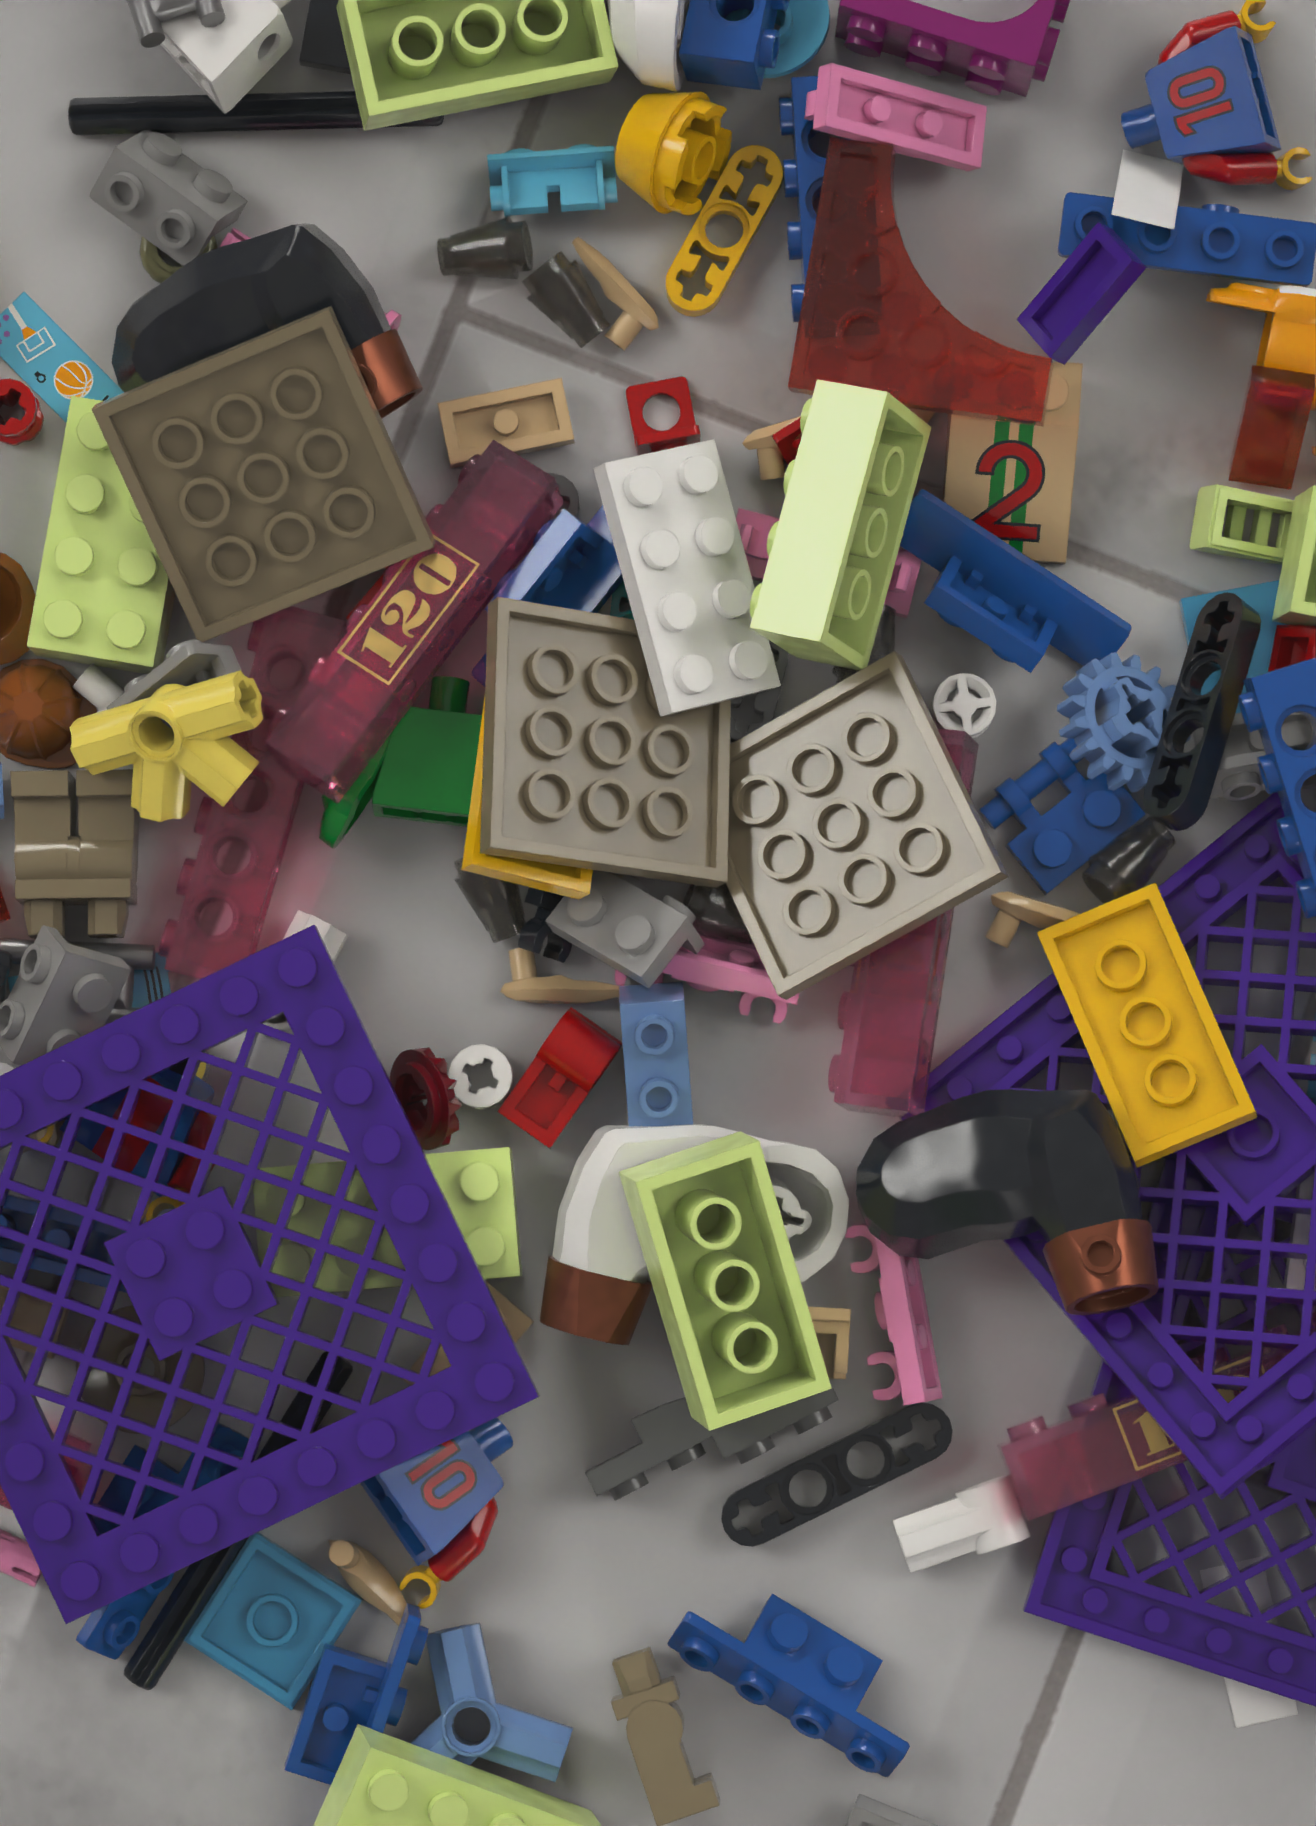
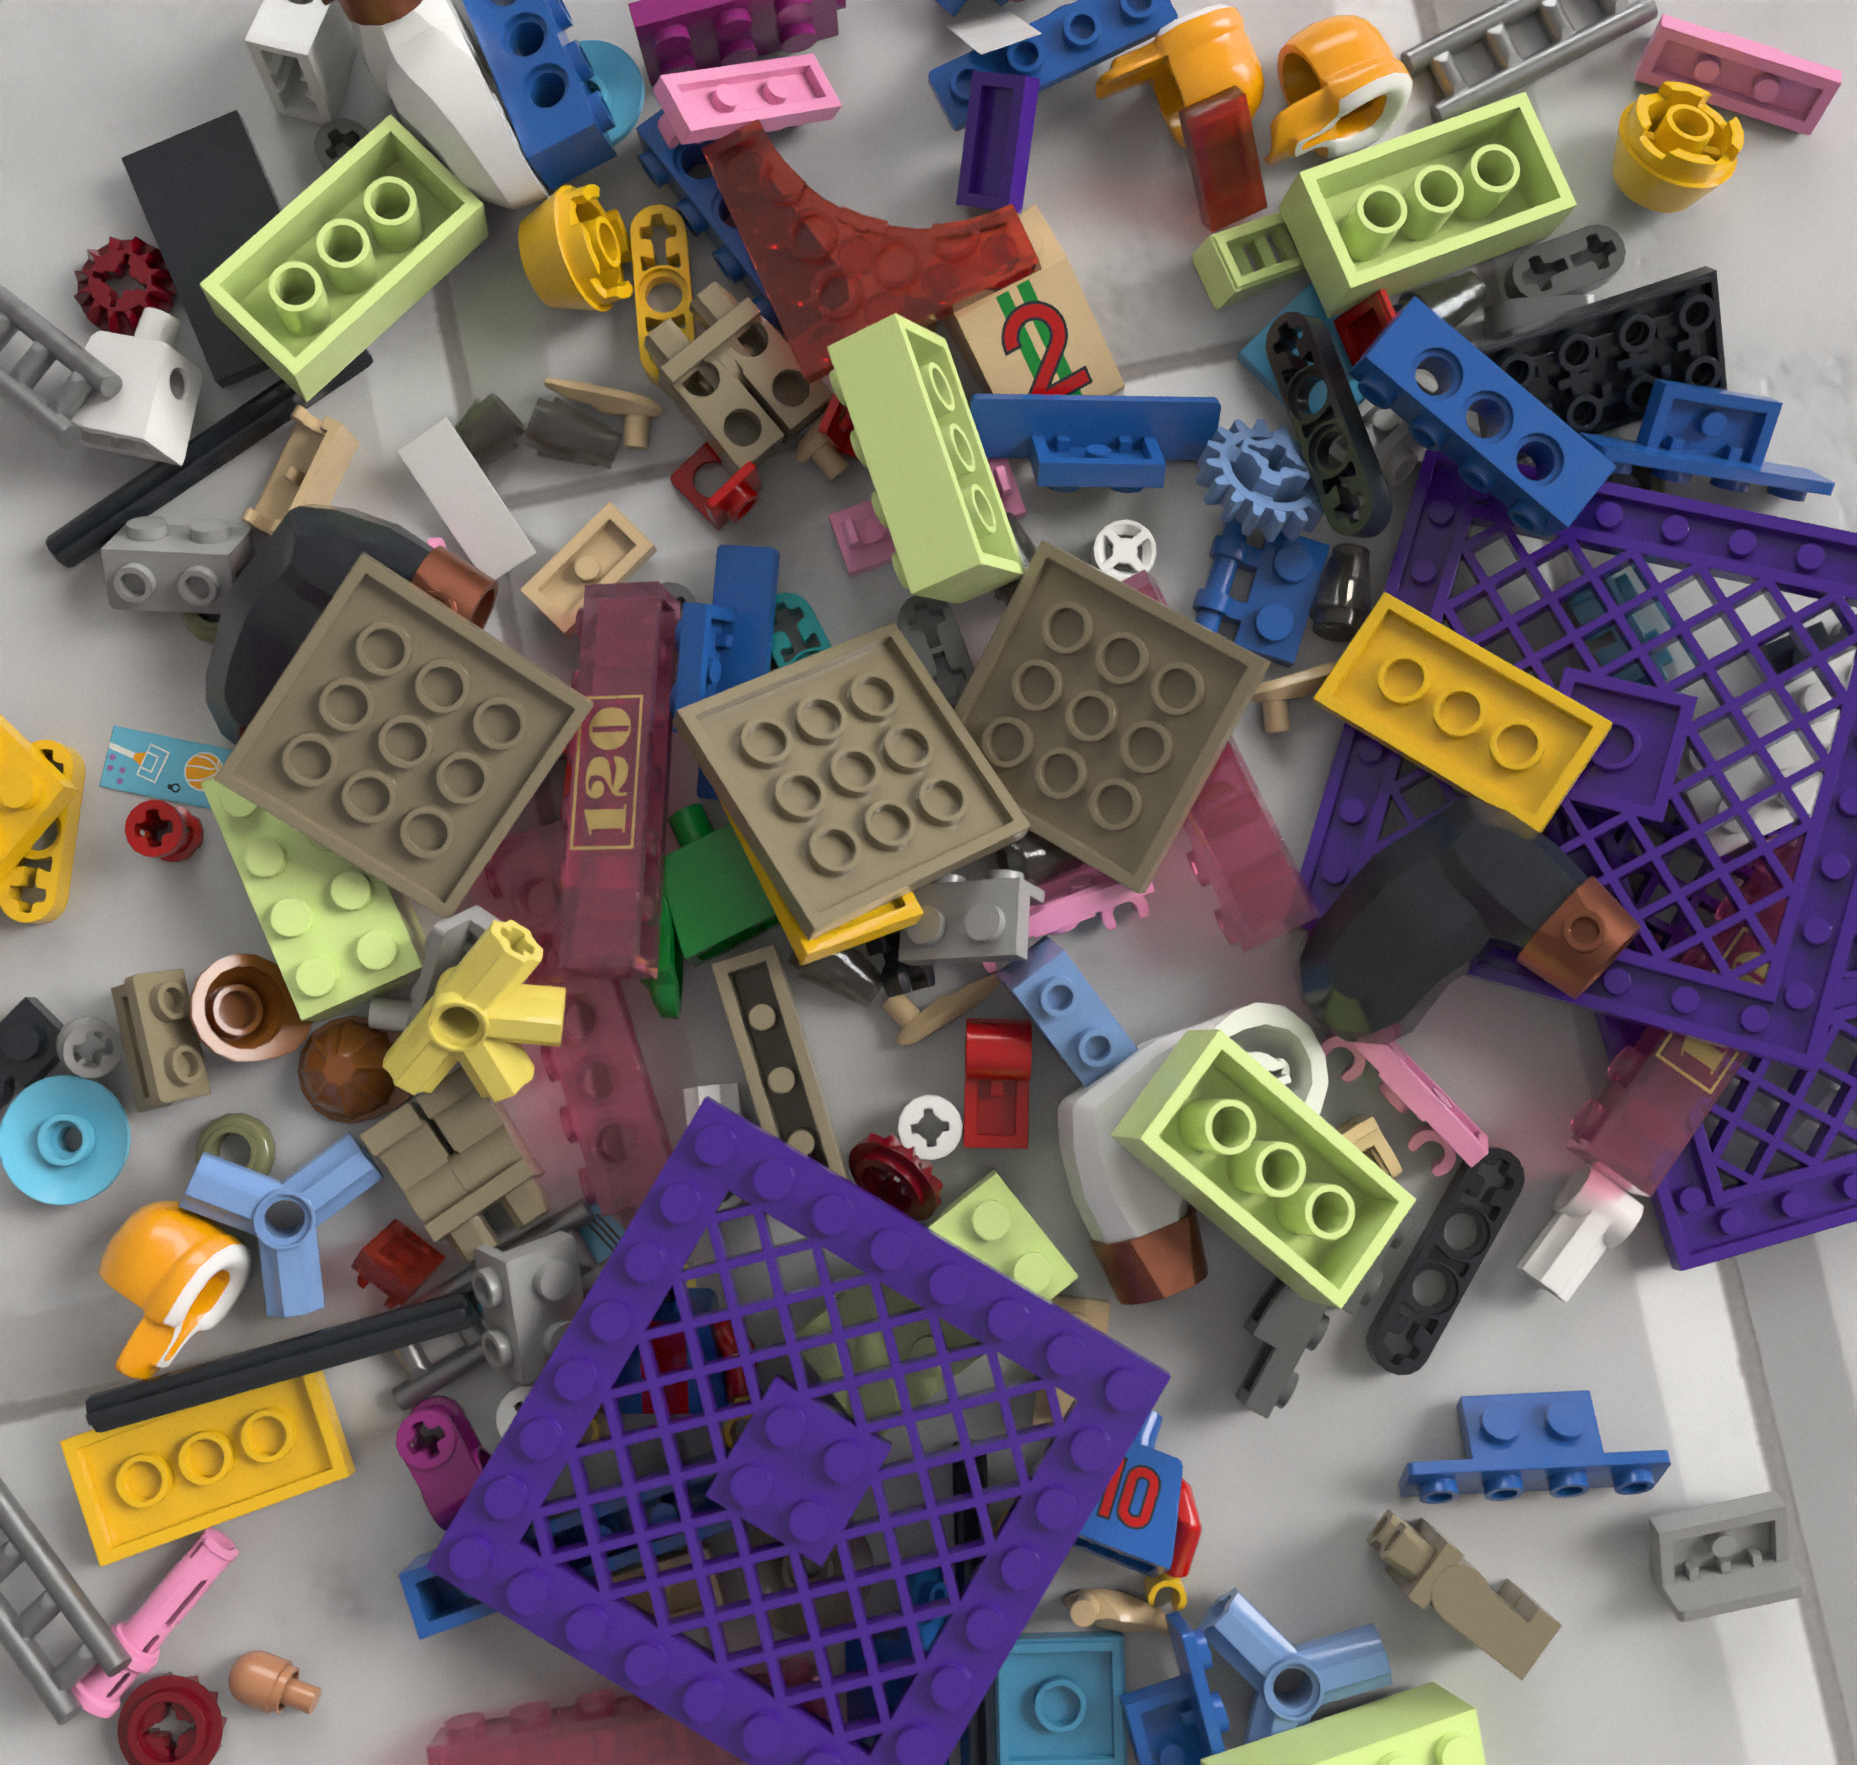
camera: 40 degrees left, 0 degrees up
(318, 185) = (305, 471): none -> tan hinge
(395, 931) = (777, 1055): none -> dark tan brick
(442, 298) = (466, 500): none -> white sticker
(524, 177) = (471, 355): medium azure hinge -> none
(686, 576) = (824, 593): white plate -> none
(724, 328) = (735, 379): none -> dark tan hips

